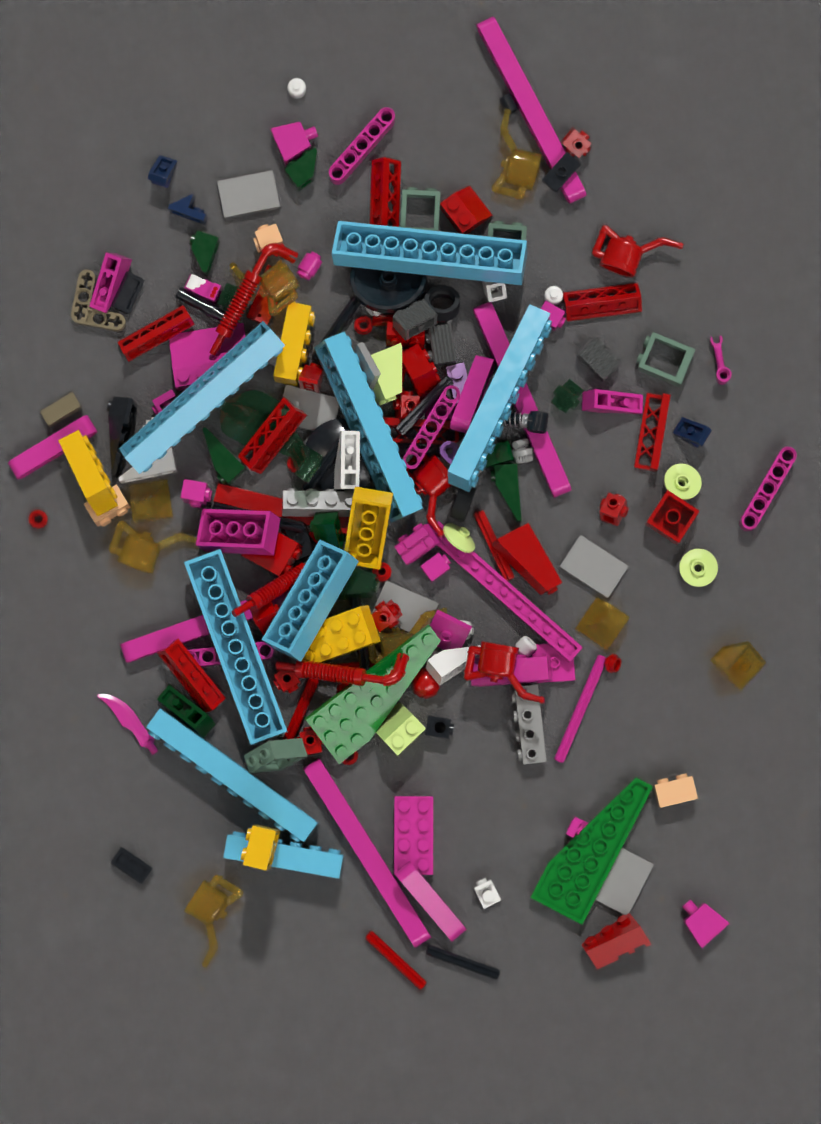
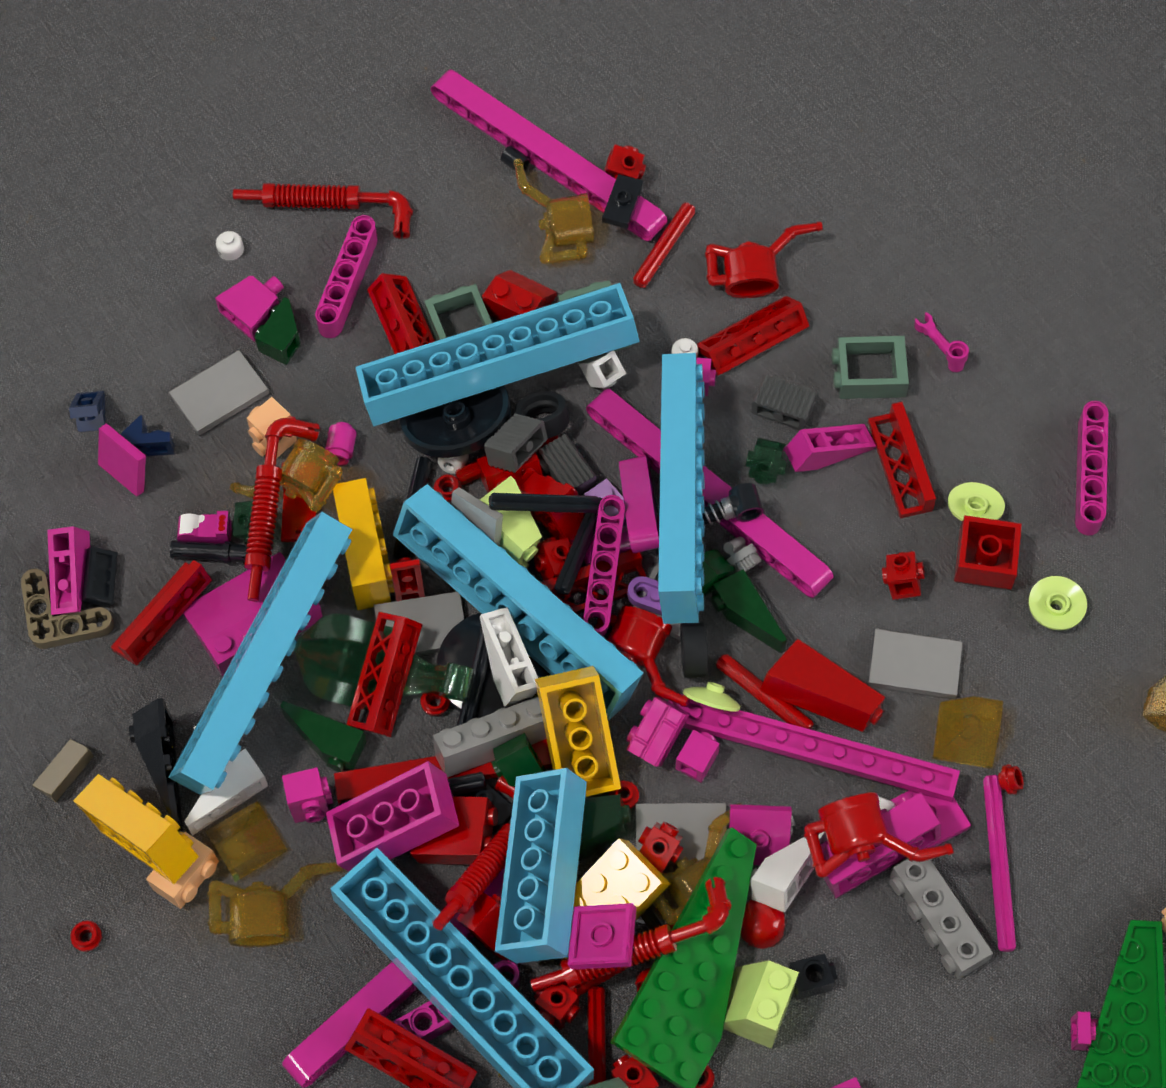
camera: 25 degrees left, 20 degrees down
(48, 448) = (60, 834): dark pink beam -> none
(163, 400) = (205, 692): dark pink bracket -> none
(169, 220) = (121, 459): none -> dark pink tile
(204, 249) = (186, 480): dark green slope -> none
(325, 658) = (602, 936): none -> dark pink tile
(377, 81) = (330, 196): none -> red piece
(410, 375) = (543, 503): none -> black axle
(576, 211) = (664, 245): none -> red axle
(692, 432) = (955, 438): dark blue slope -> none

